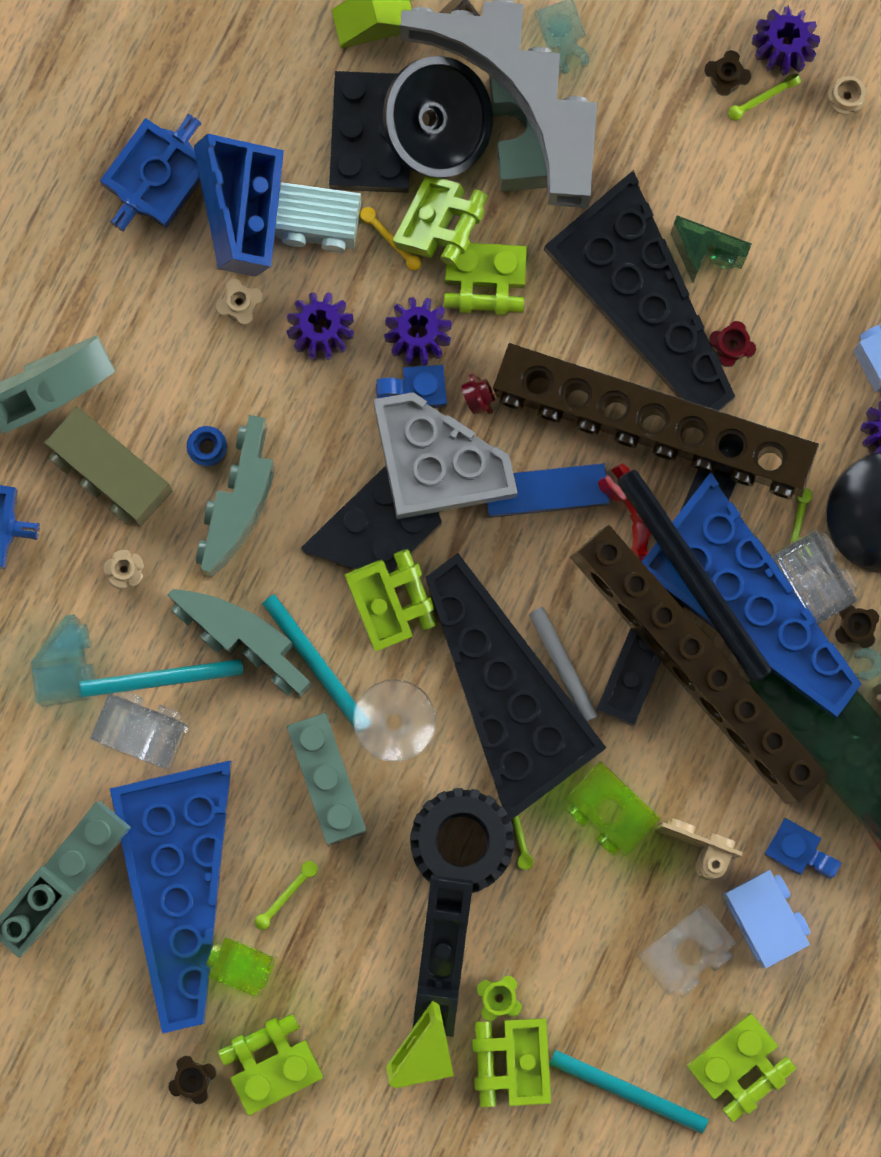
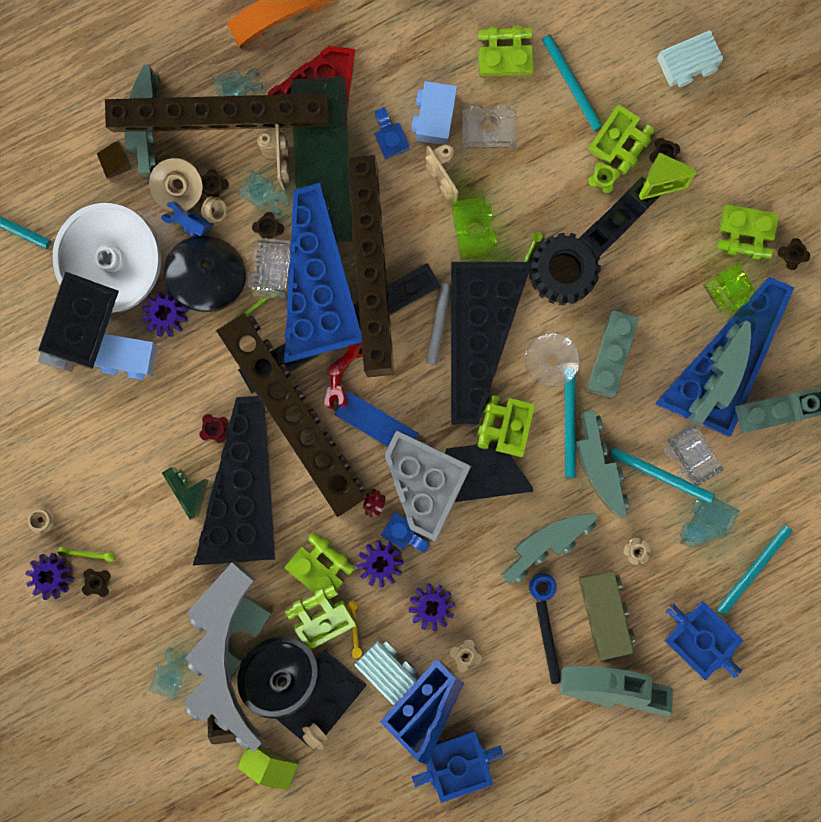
camera: 140 degrees left, 5 degrees up
(153, 389) = (548, 642): none -> black bar
(173, 870) = (730, 366): none -> sand green slope
(309, 869) = (654, 317): lime hinge -> none
(345, 81) = (314, 737): none -> tan plate
(457, 1093) = (664, 145): none -> dark brown plate
(694, 576) = (337, 312): black axle -> none

